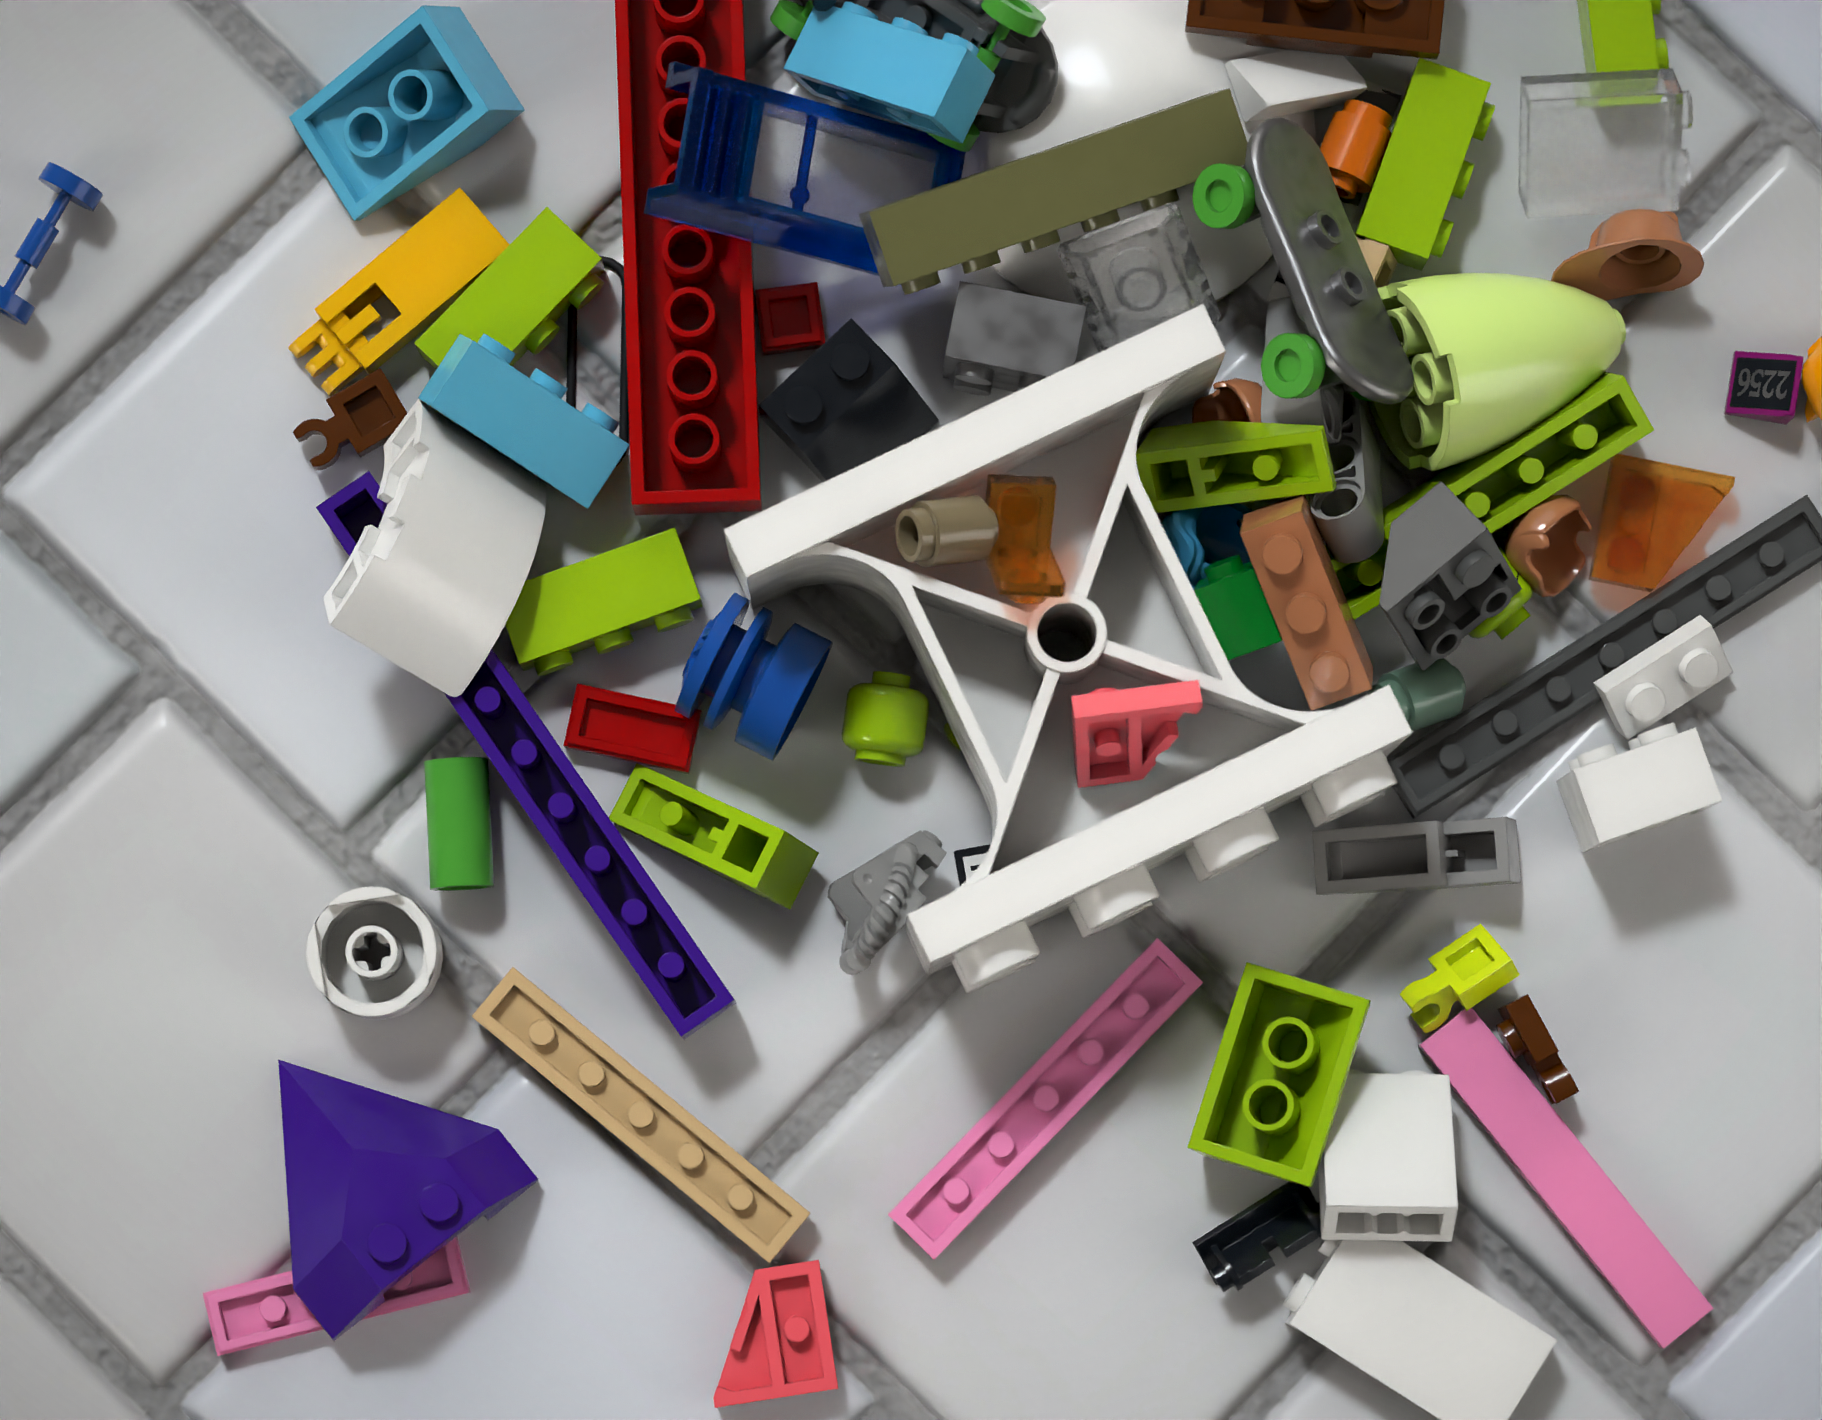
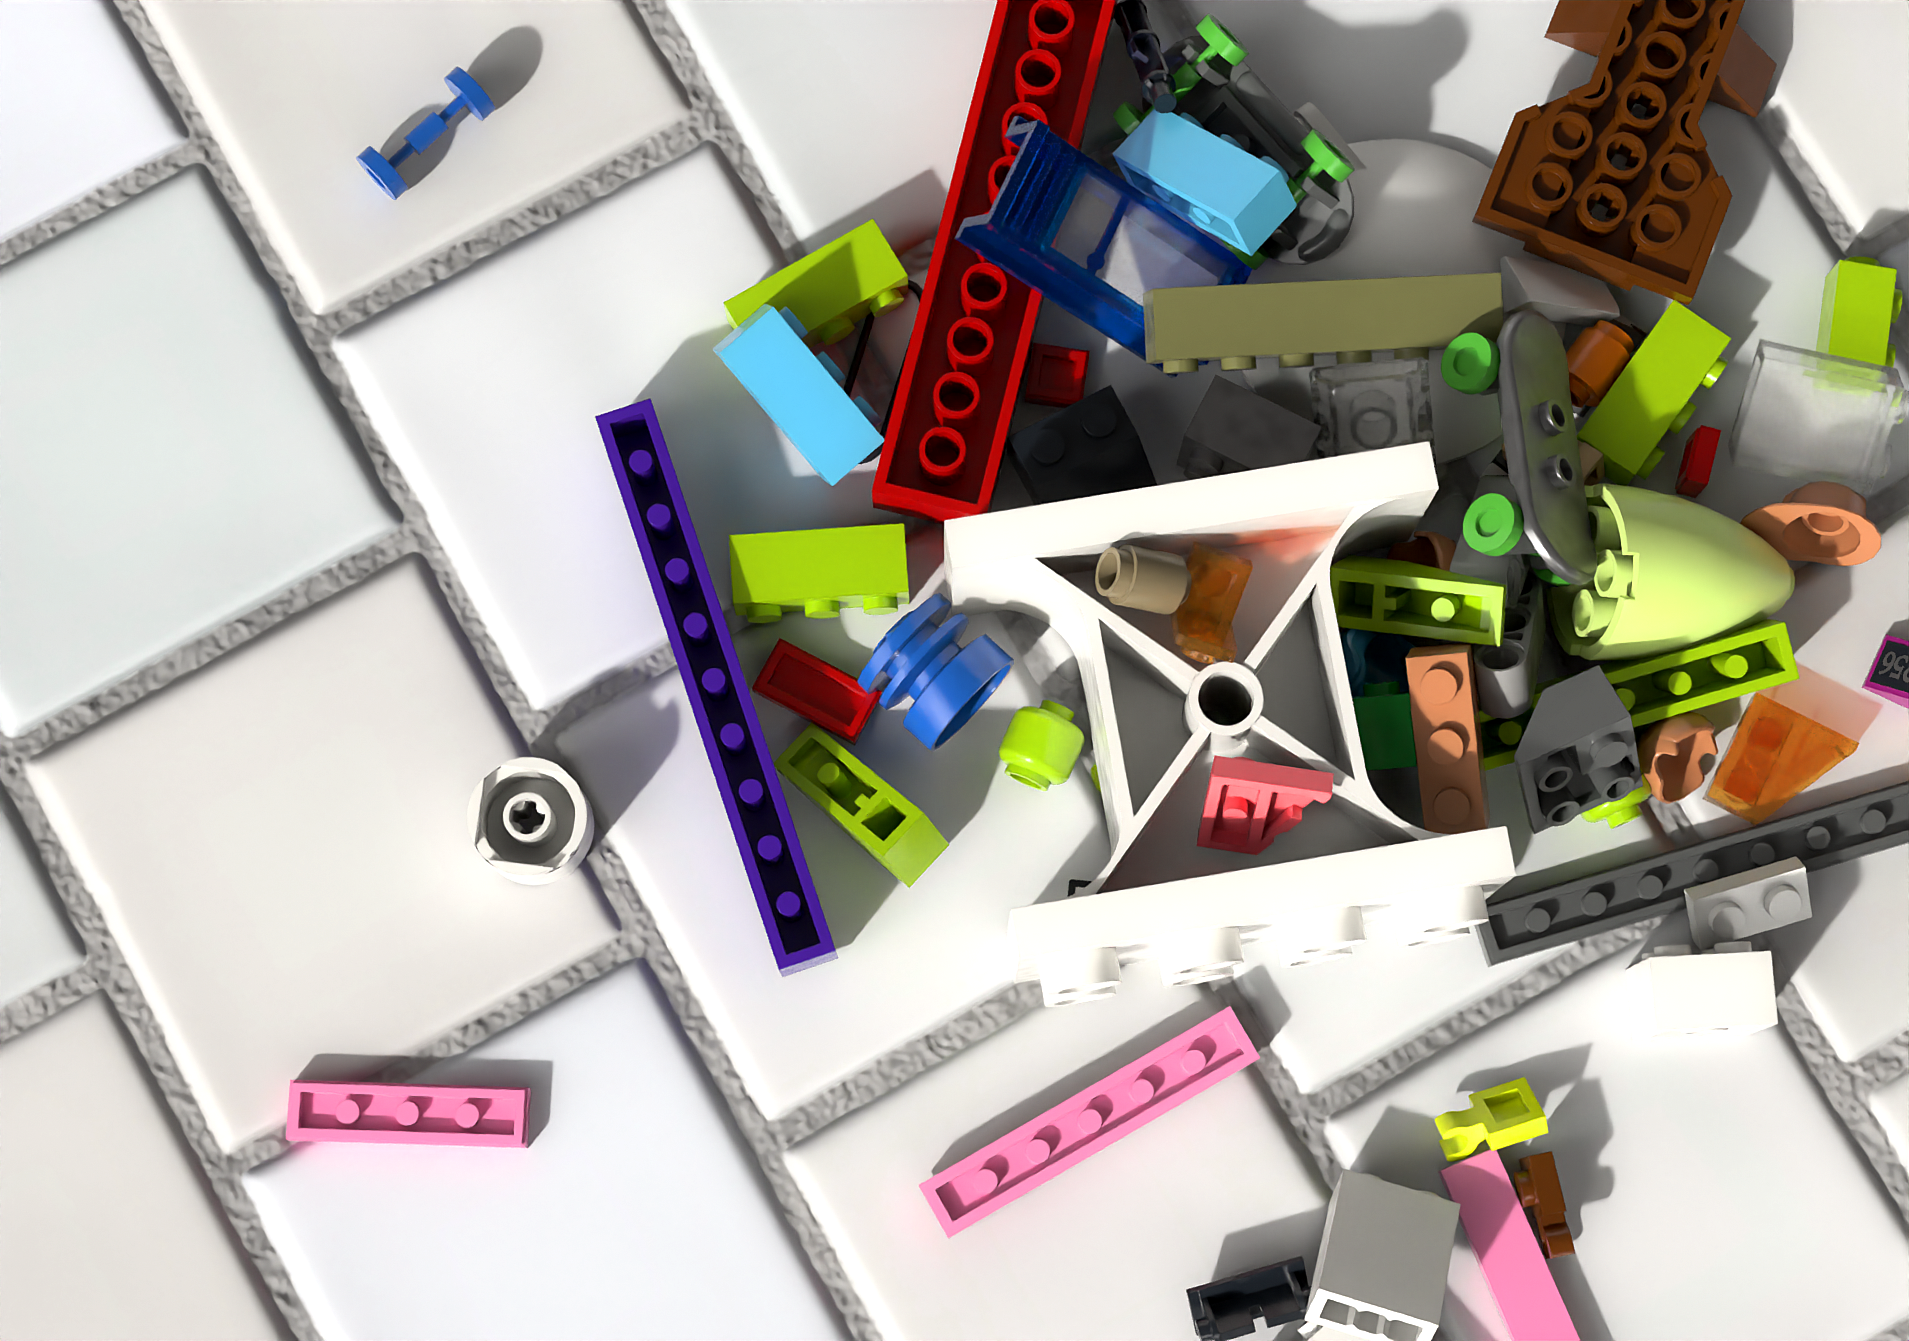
camera: 20 degrees right, 5 degrees down
(363, 415) = (663, 356): reddish brown plate -> none
(379, 1188) = (473, 1031): dark purple wedge -> none
(406, 109) = (776, 107): medium azure slope -> none
(417, 274) = (743, 250): yellow hinge -> none
(446, 555) = (694, 489): white panel -> none
(459, 823) = (639, 730): bright green pin -> none
(641, 1115) = (725, 1033): tan plate -> none
(780, 1338) = (790, 1269): coral wing -> none
(881, 895) = (989, 892): light grey piece -> none
(1278, 1075) = (1306, 1159): lime slope -> none
(1416, 856) = (1483, 1000): light grey slope -> none
(1427, 694) = (1536, 857): sand green brick -> none
(1490, 222) = (1697, 461): none -> red tile

